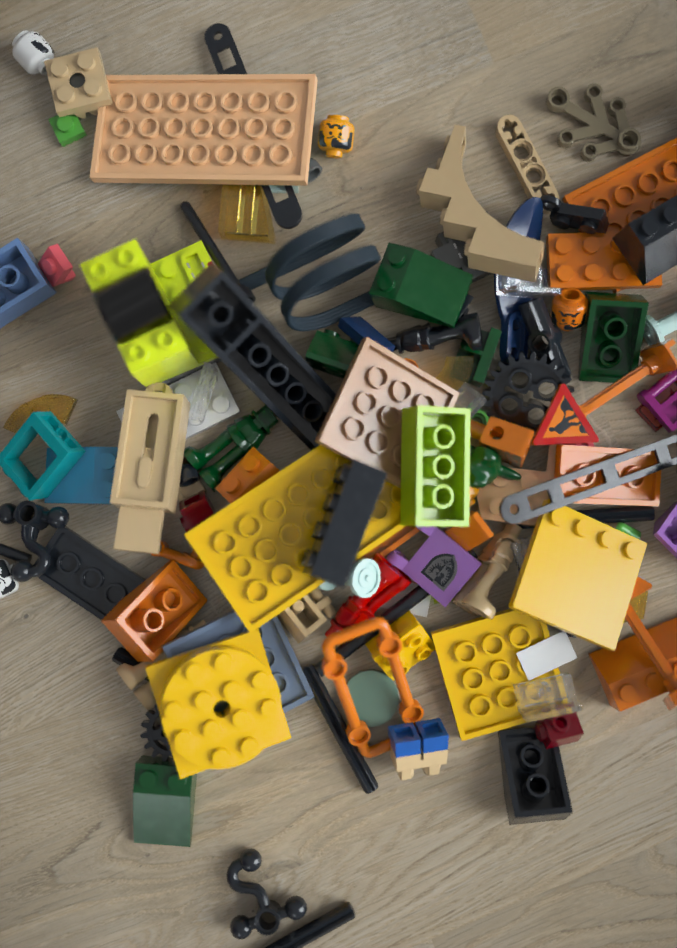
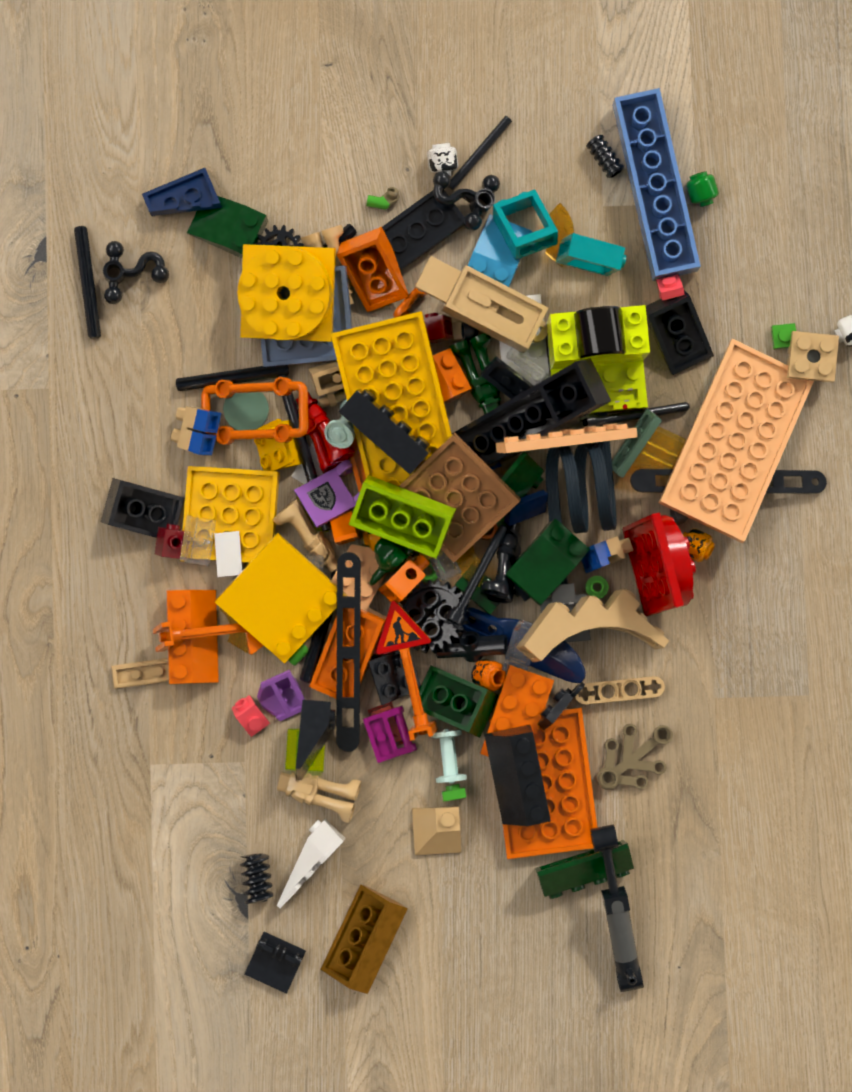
camera: 110 degrees right, 0 degrees up
(48, 366) = (591, 254): none -> teal window
(71, 627) = (385, 201): none -> arm
(100, 232) = (678, 332): none -> black slope
(147, 869) = (183, 195): none -> dark blue wing
(228, 408) = (505, 378): none -> black plate
(242, 239) = (633, 446): none -> sand green tile
(274, 300) = (567, 437): none -> light nougat wing
(378, 153) = (660, 563): none -> red piece
(383, 227) = (606, 553): none -> hips
(423, 237) = (597, 579): none -> bright green plate
(522, 363) = (457, 614): none -> black piece
(615, 418) = (390, 676): none -> black hinge

